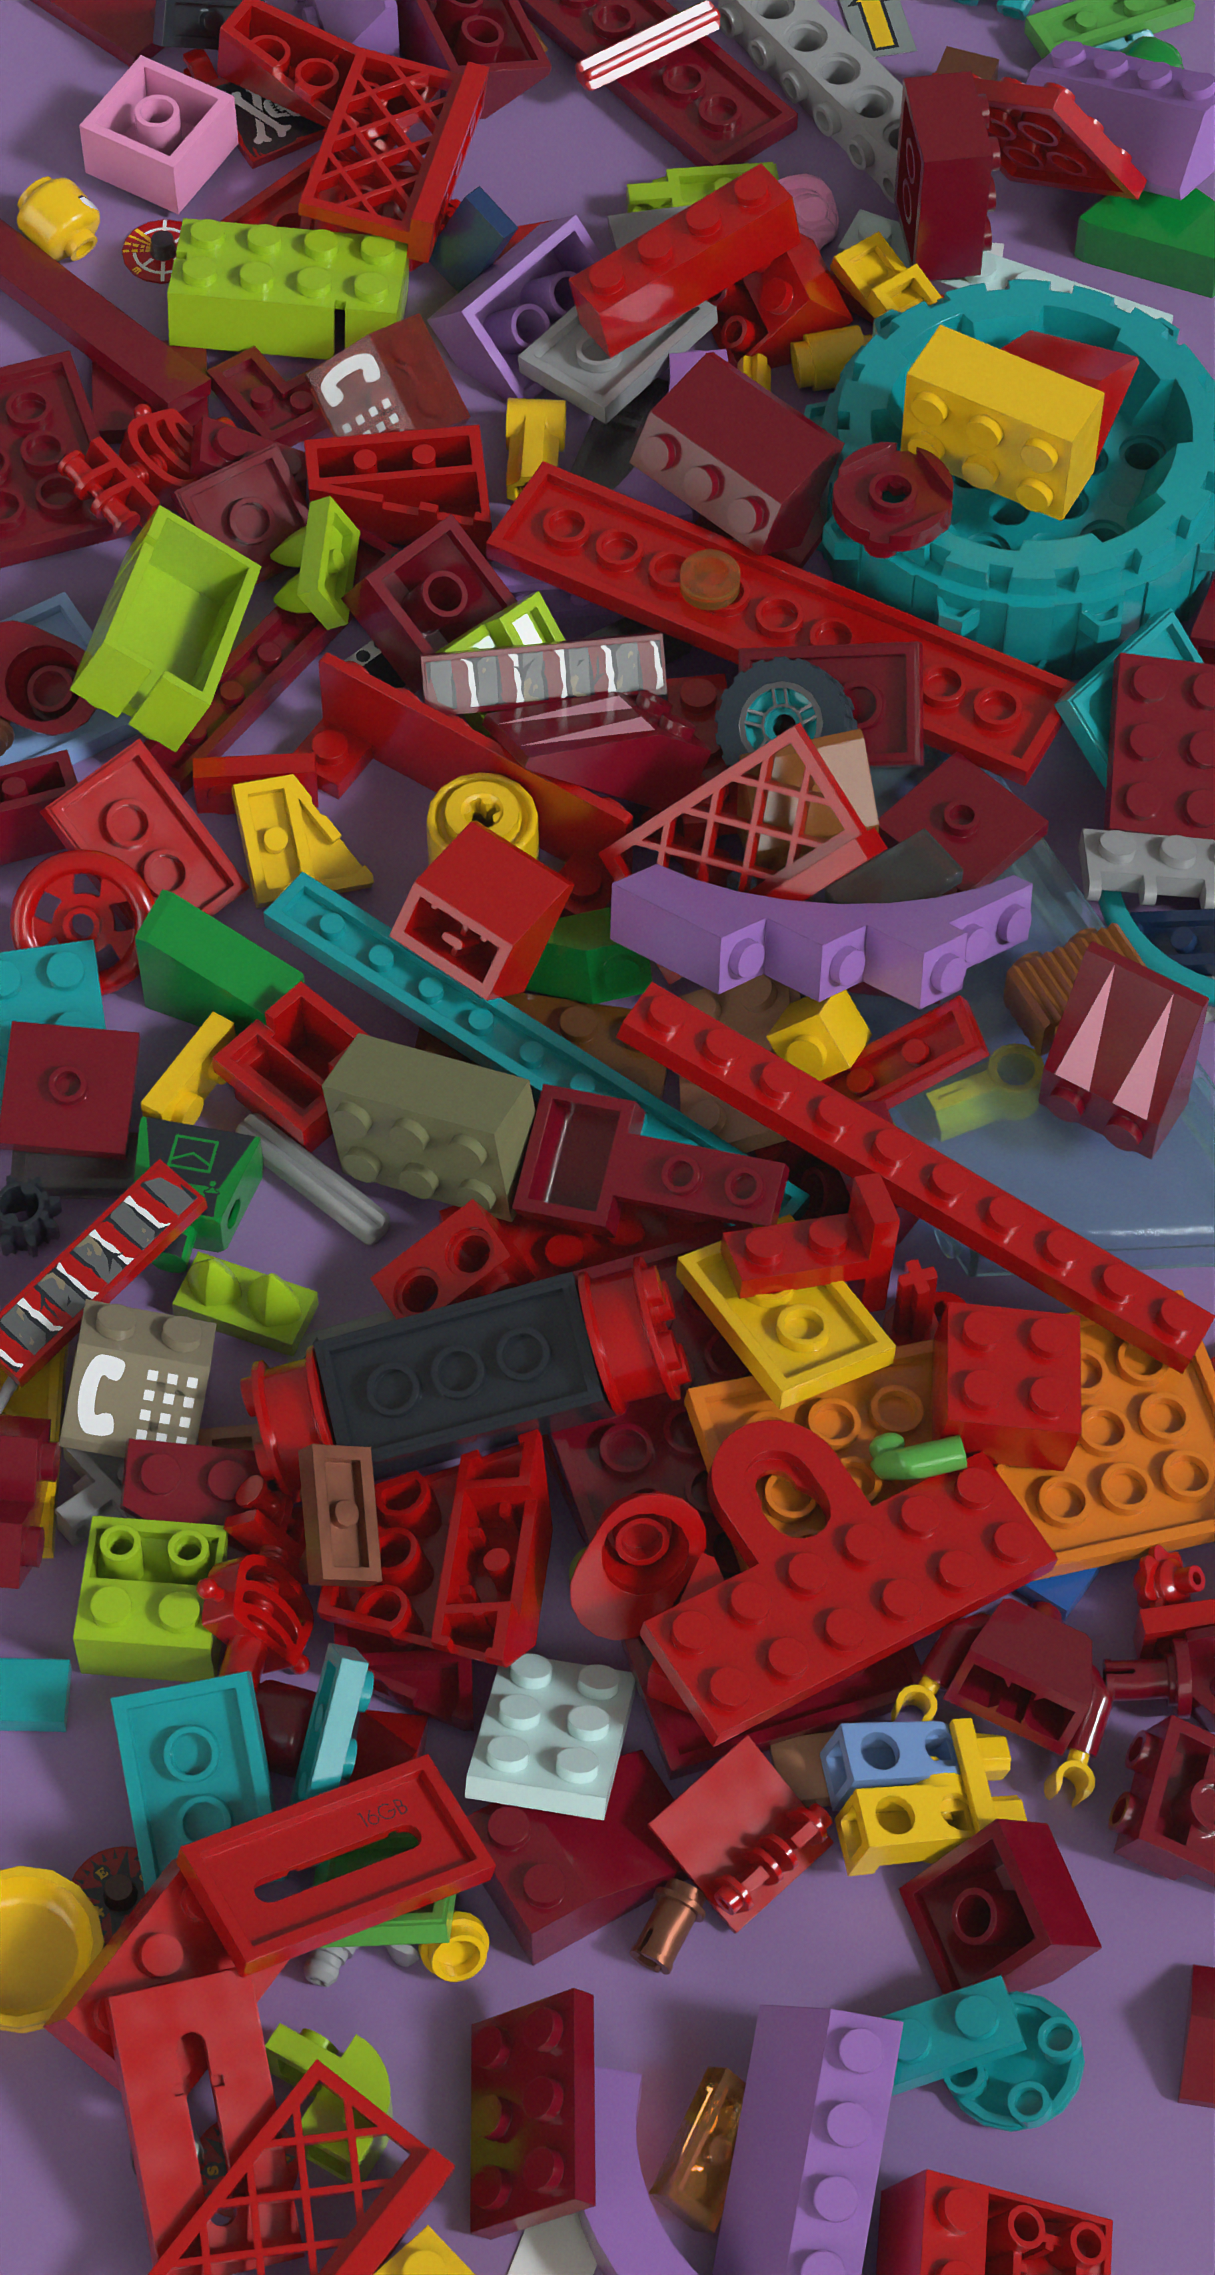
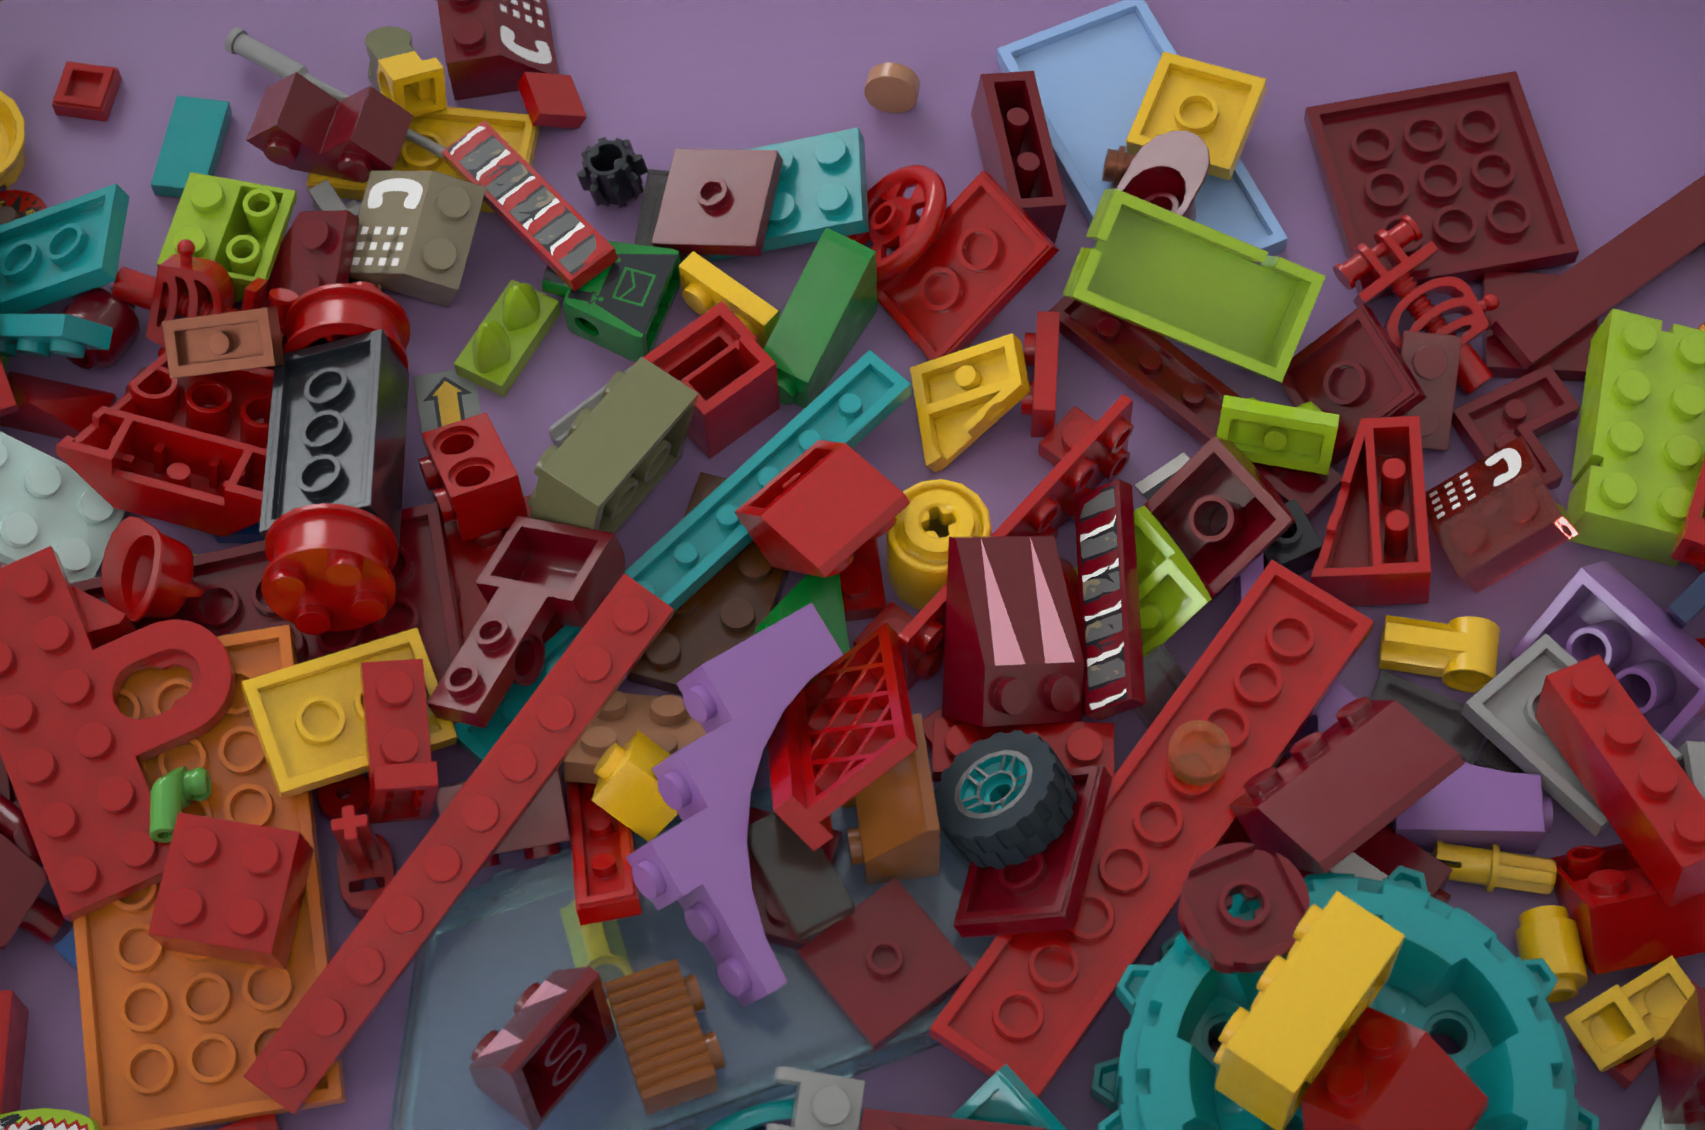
camera: 100 degrees right, 5 degrees up
(1165, 1580) = (52, 1034): red plant -> none

